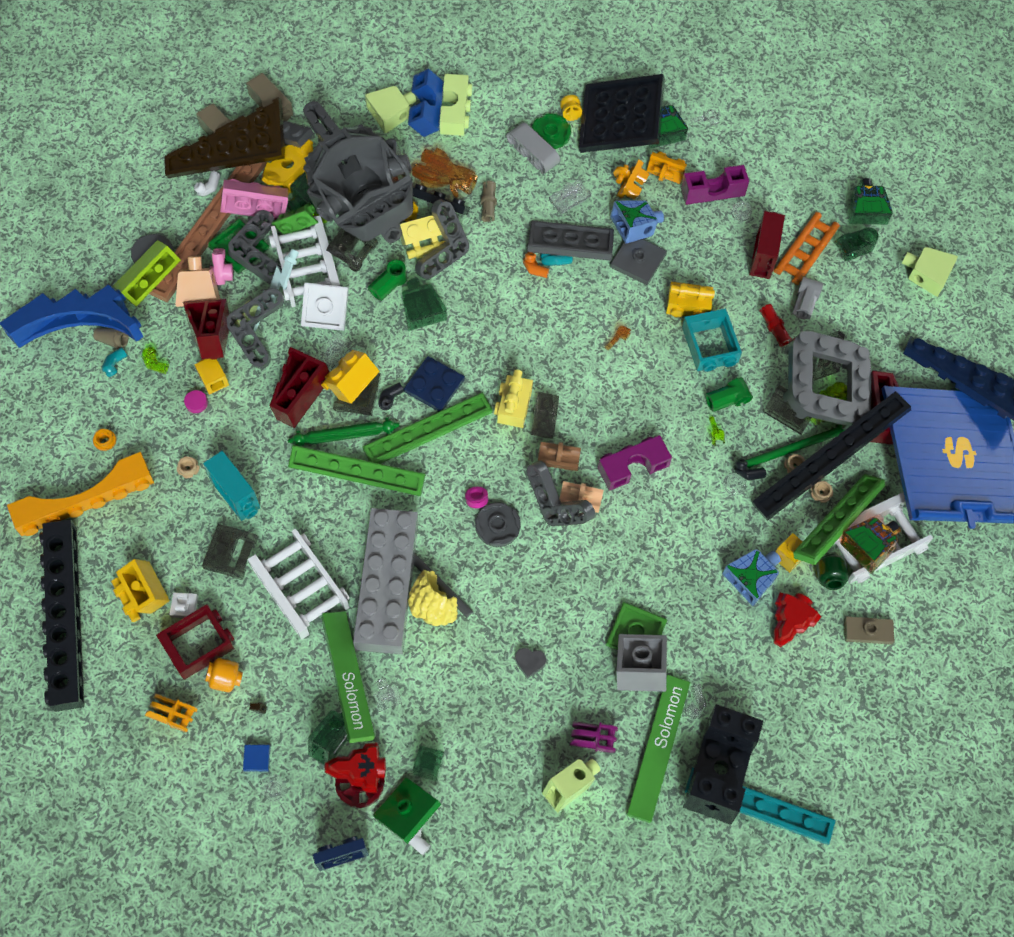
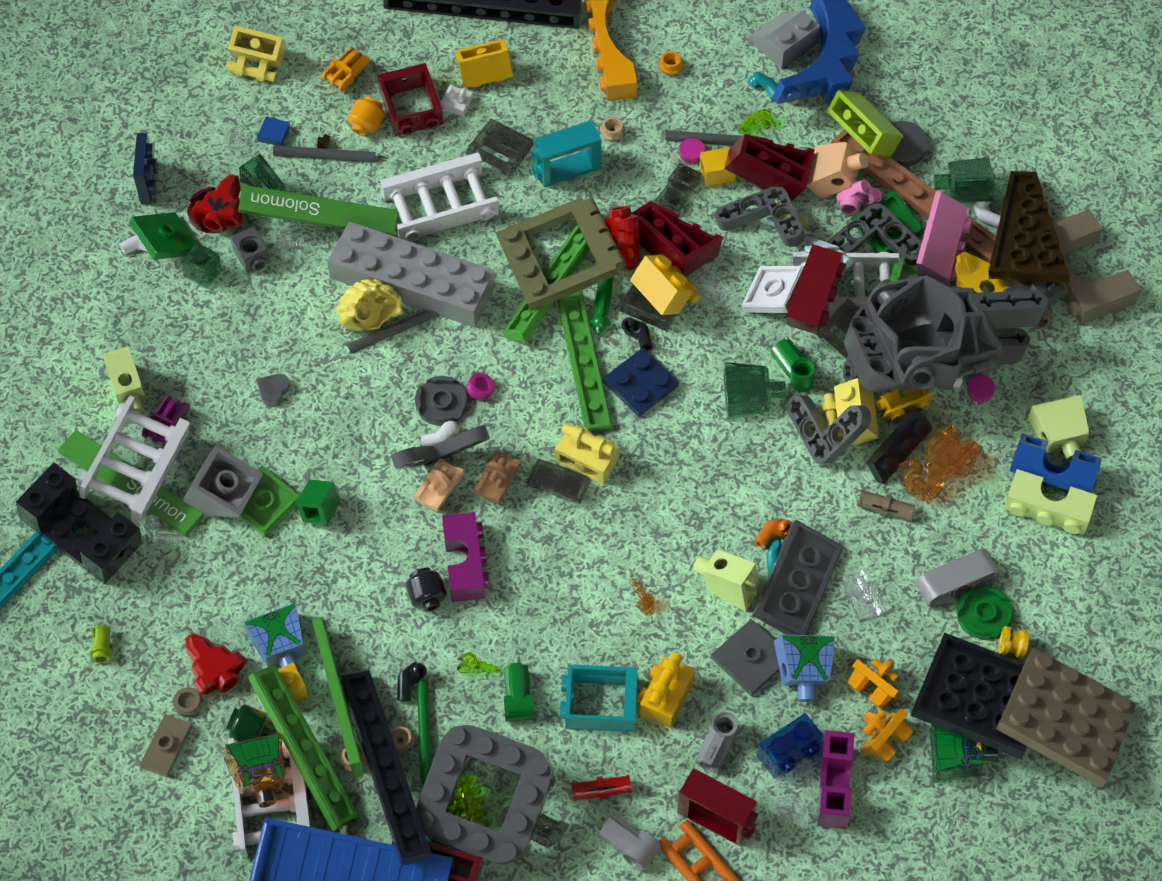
camera: 110 degrees right, 5 degrees down
(57, 356) = (786, 37): none -> light grey slope
(167, 802) = (257, 48): none -> light yellow brick
(178, 387) = (704, 137): none -> dark grey bar
(186, 194) = (968, 180): none -> clear green torso
(237, 402) = (679, 188): none -> clear smoke slope
(270, 704) = (324, 153): none -> dark grey bar
(303, 420) = (624, 230): none -> red rock
(330, 262) = (816, 289): none -> dark red wedge
(353, 491) = (527, 269): none -> olive hinge
(395, 737) = (249, 241): none -> dark grey brick
(533, 510) = (445, 432): none -> white arm
(589, 278) = (730, 578): none -> yellowish green torso
(620, 64) = (1067, 717): none -> dark tan plate
(628, 581) = (318, 502): none -> green brick
(648, 716) = (149, 480): none -> white fence
(672, 480) = (425, 589): none -> black head
(700, 217) = (790, 745): none -> clear blue brick
(712, 261) = (717, 743): none -> light grey piece
(787, 511) = (338, 698): none -> bright green tile
(810, 712) = (101, 644): none -> lime pin
(828, 628) = (187, 702): none -> dark tan tile

